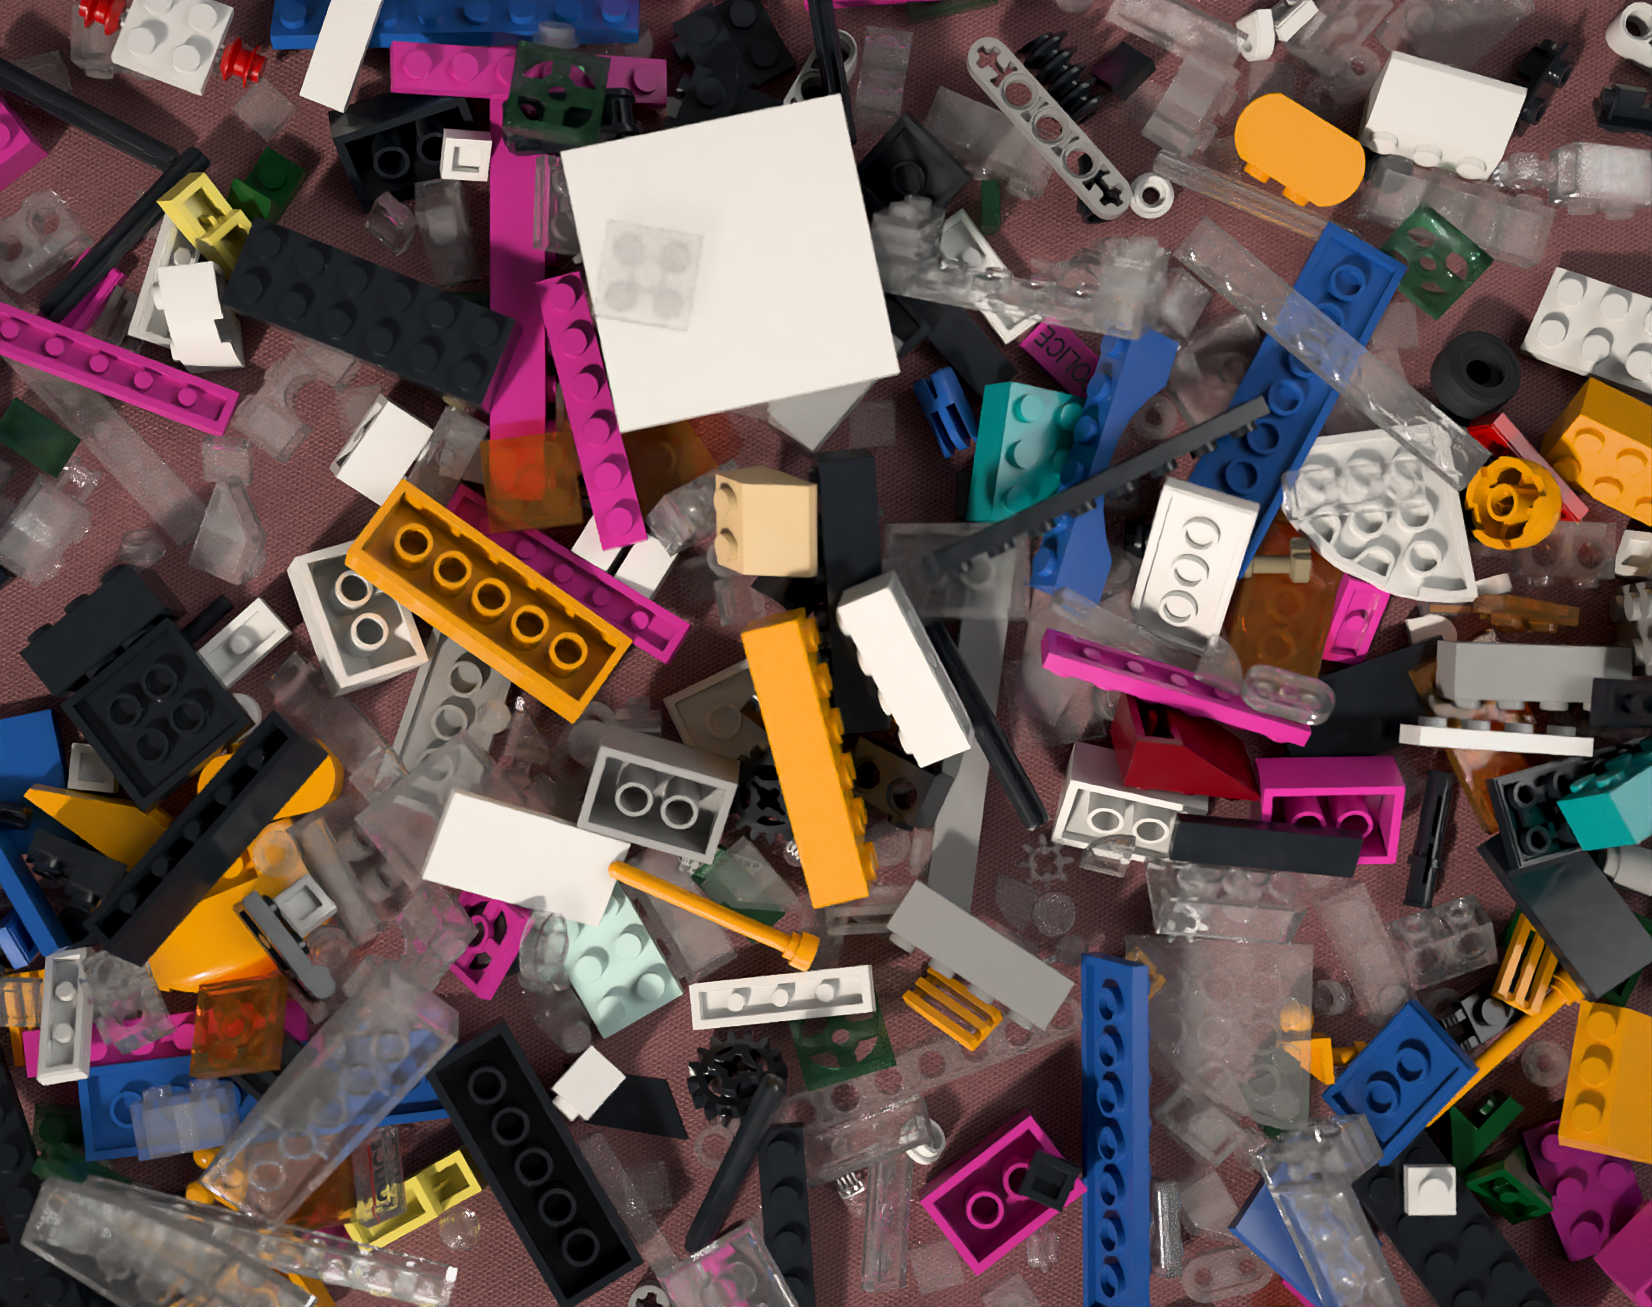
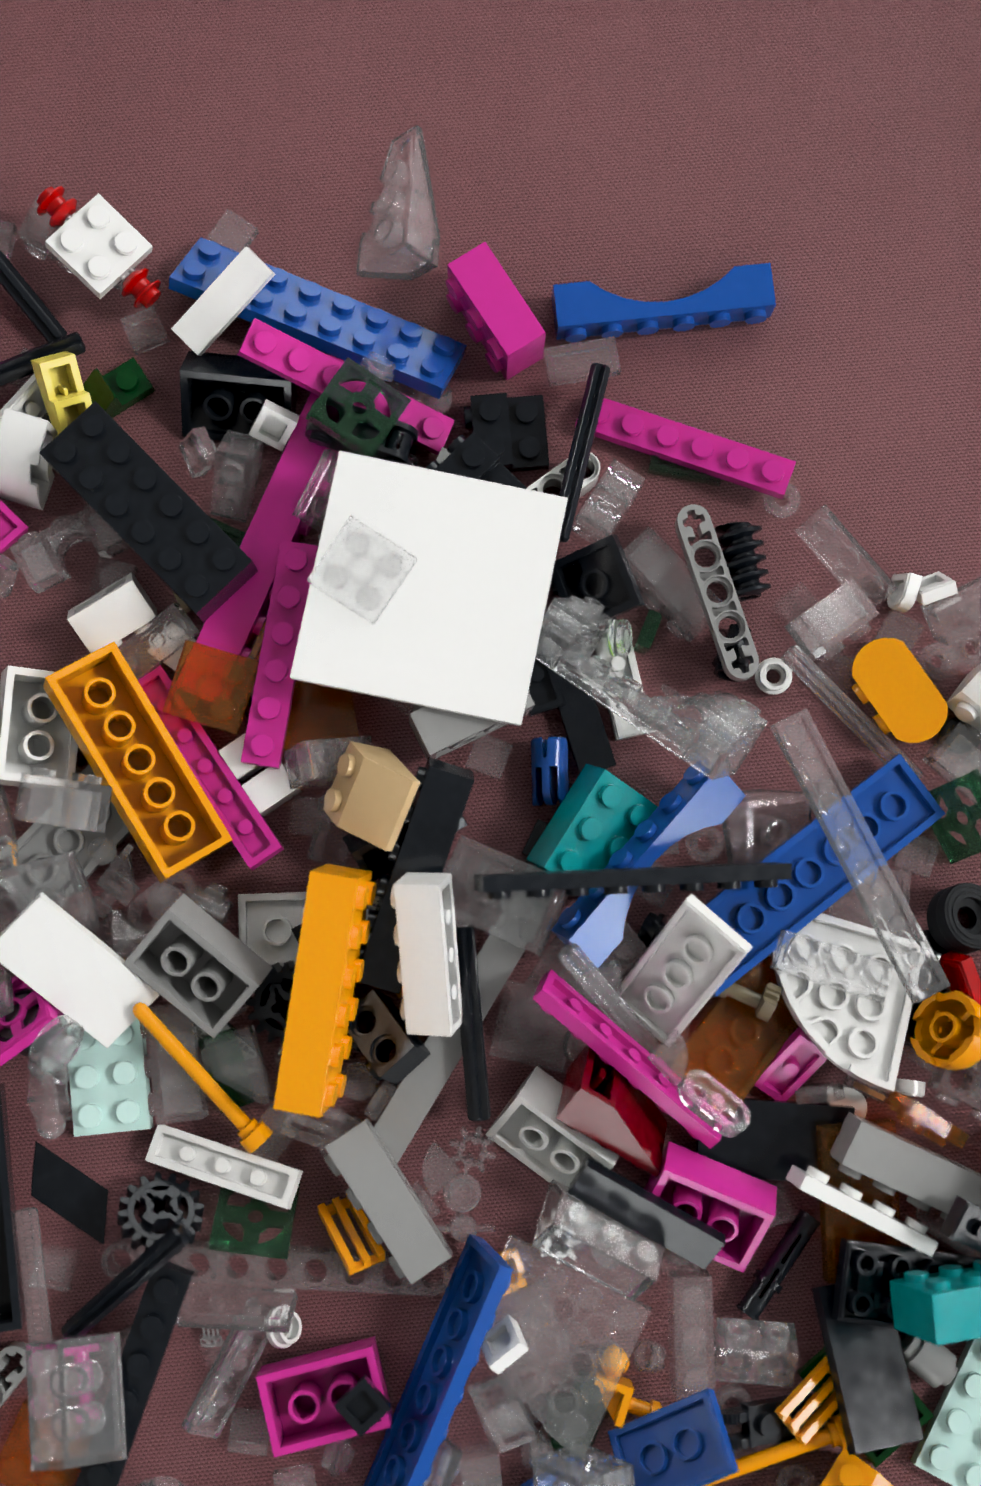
camera: 20 degrees right, 5 degrees down
(439, 677) = (62, 802): none -> clear brick
(585, 1085) = (39, 1168): white brick -> none
(961, 227) = (619, 638): none -> clear tile
(1061, 357) = (654, 768): dark pink tile -> none
(1109, 854) = (525, 1165): clear tile -> none
(1124, 70) = (792, 575): black tile -> none
(1171, 1050) = (504, 1344): none -> white plate
(1181, 304) = (759, 767): clear brick -> none
(1397, 635) = (820, 1093): none -> clear tile

